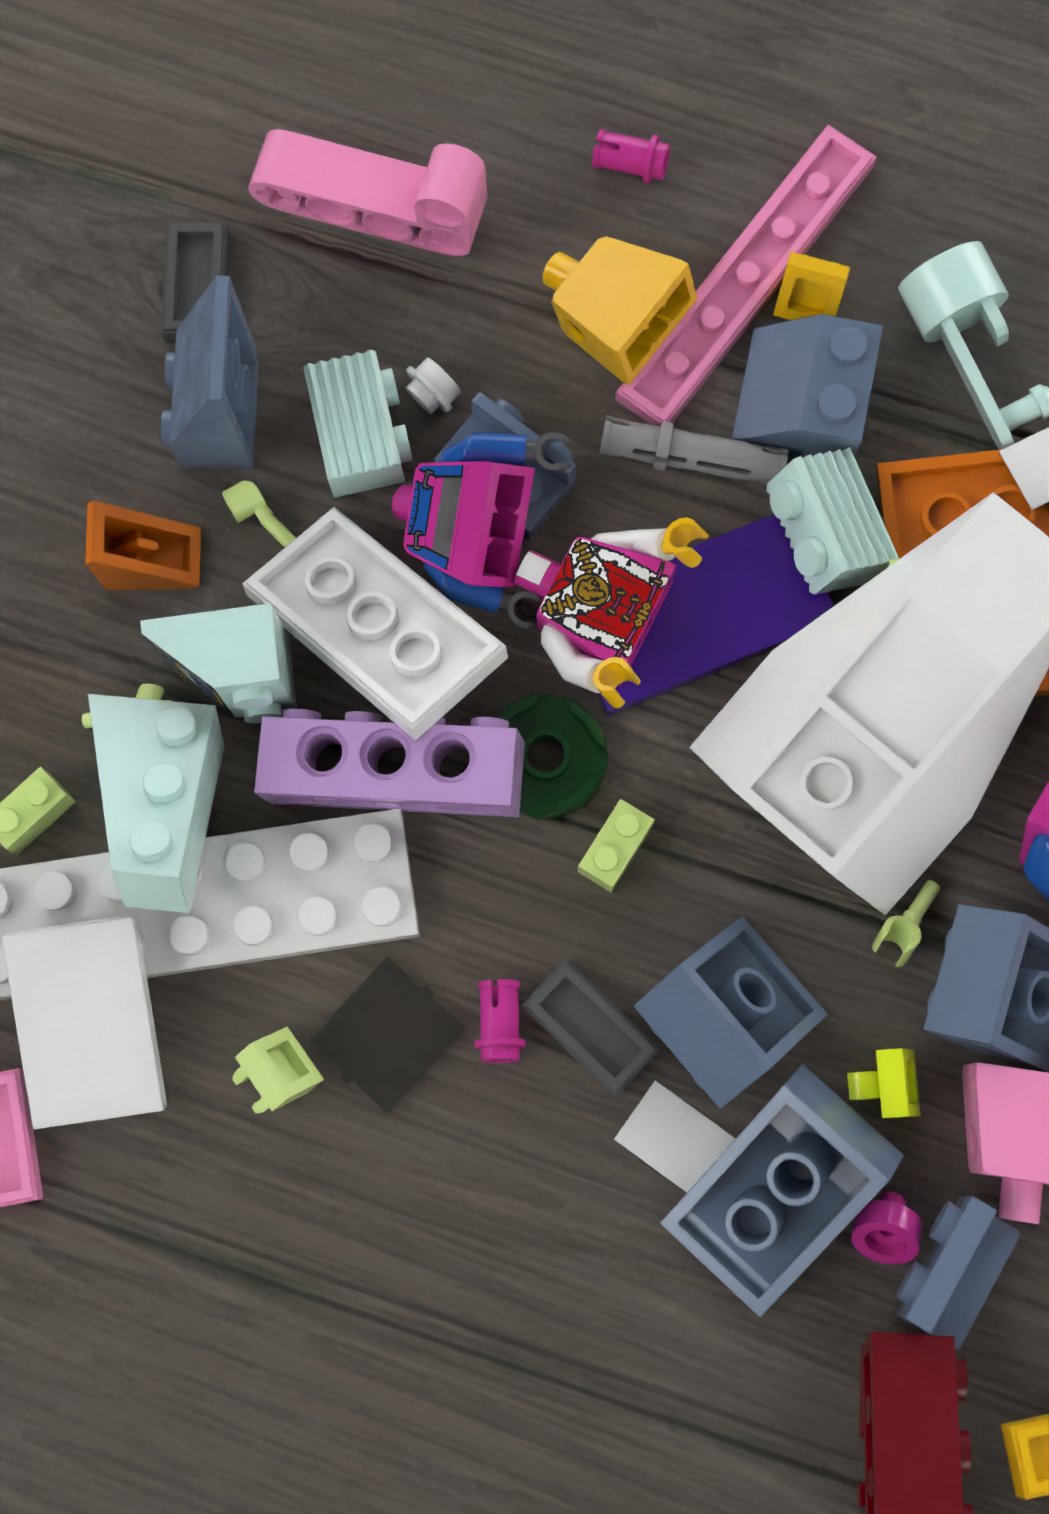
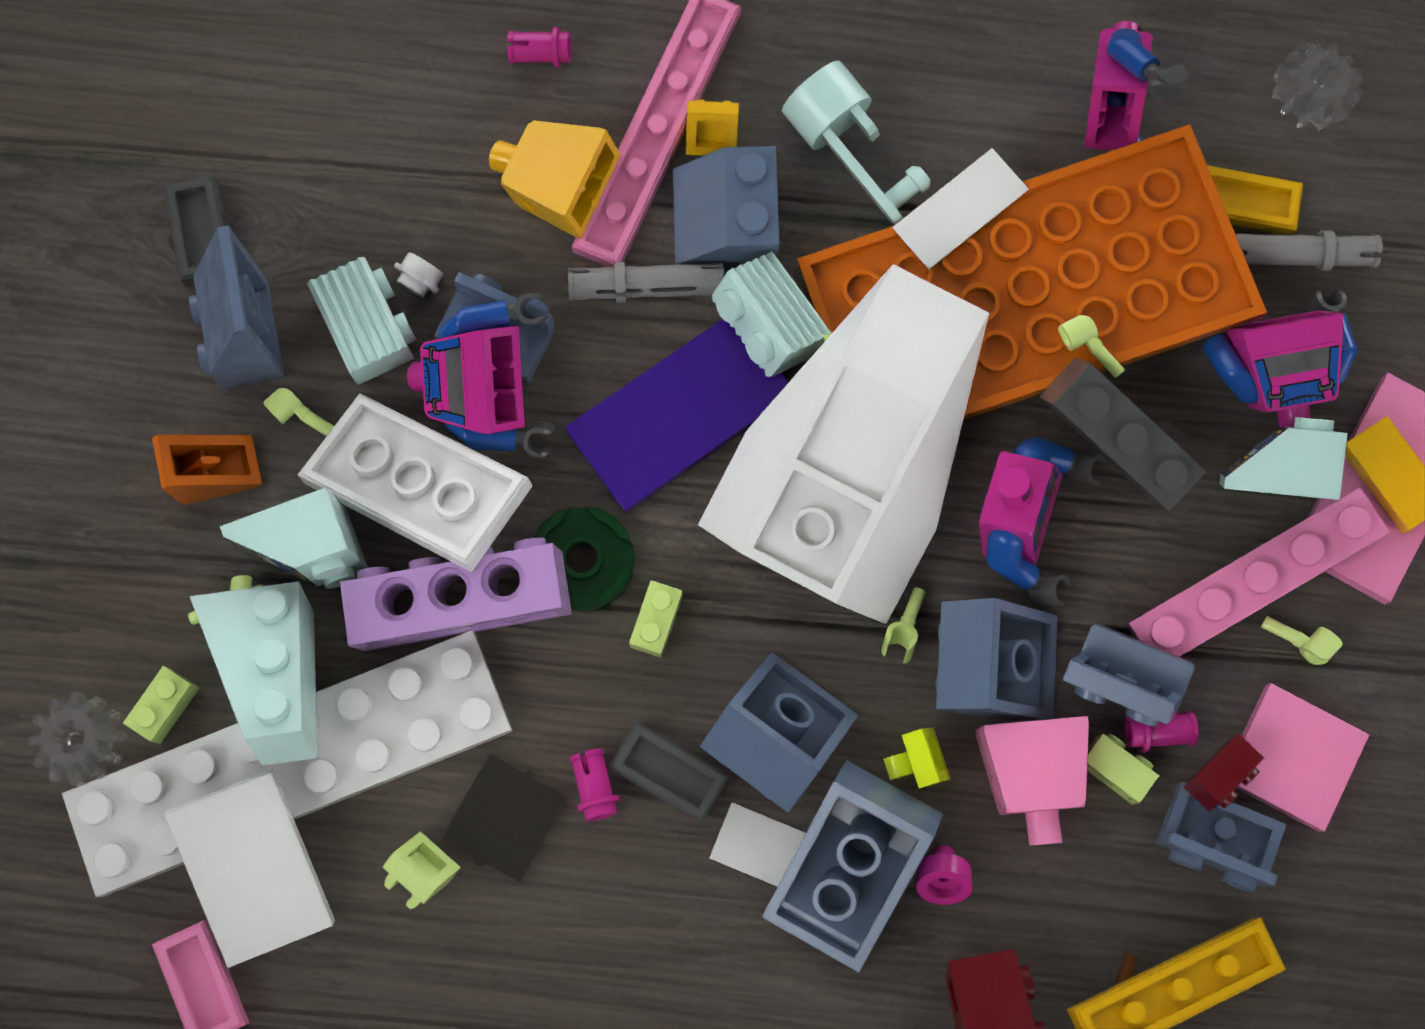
camera: 20 degrees left, 0 degrees up
(374, 193) = (330, 124): bright pink beam -> none
(606, 600) = (601, 421): torso -> none
(959, 1271) = (1008, 895): sand blue bracket -> none

